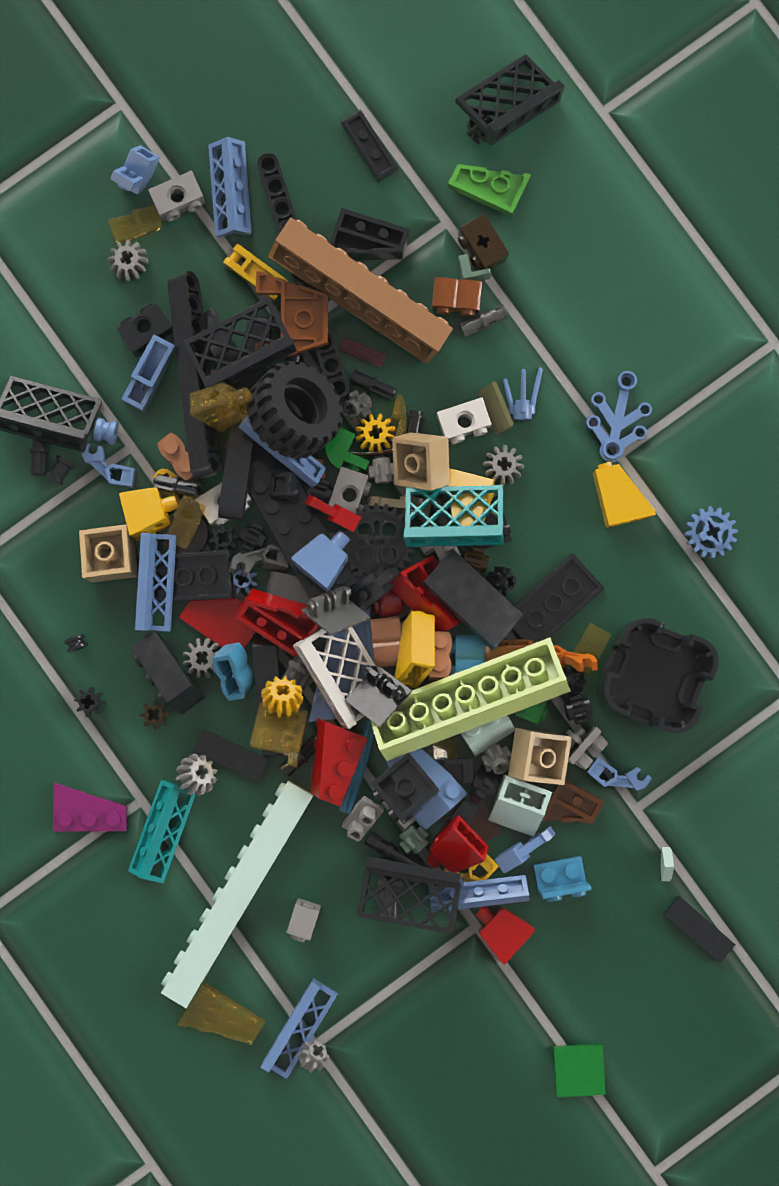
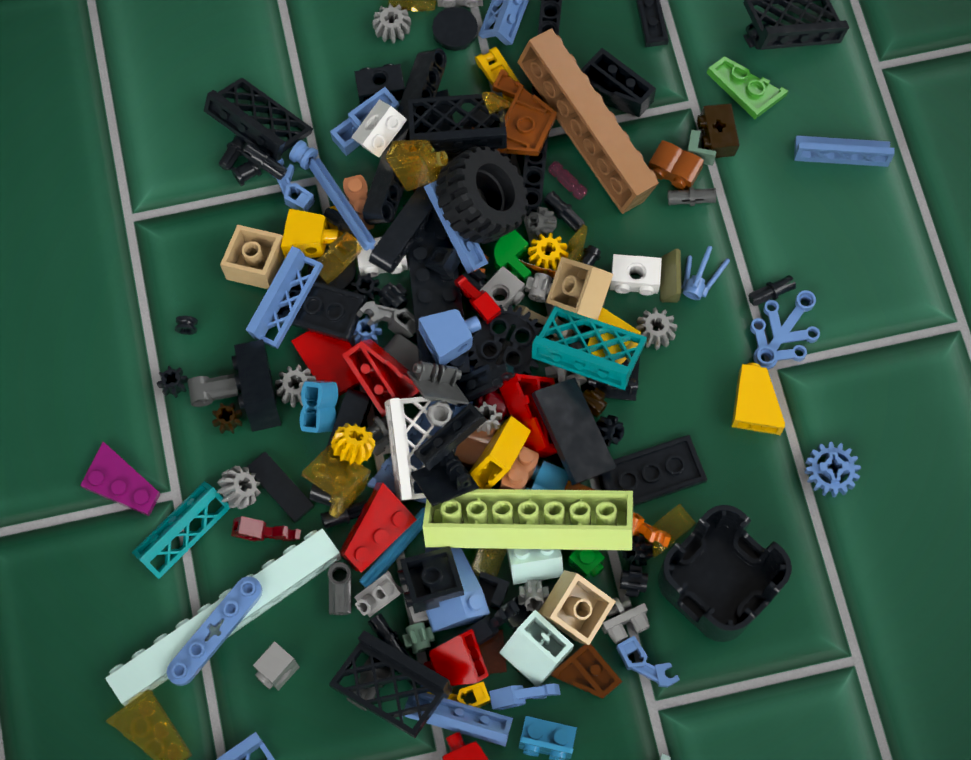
camera: 25 degrees right, 15 degrees down
(74, 456) = (264, 161): none -> black axle
(123, 696) = (206, 390): none -> dark grey piece
(167, 470) = (342, 204): none -> medium blue axle
(168, 380) = (379, 128): none -> white brick
(190, 239) = (455, 28): none -> black tile
(231, 804) = (256, 530): none -> dark red piece
(231, 936) = (196, 650): none -> medium blue piece
(267, 312) = (495, 102): none -> clear yellow slope
(328, 827) = (339, 591): none -> dark grey piece
(348, 638) = (439, 414): none -> light grey tile
(366, 655) = (449, 436): none -> black tile
(391, 613) = (490, 411): none -> light grey gear
(593, 384) = (771, 291): none -> black axle
(604, 214) = (843, 151): none -> medium blue fence

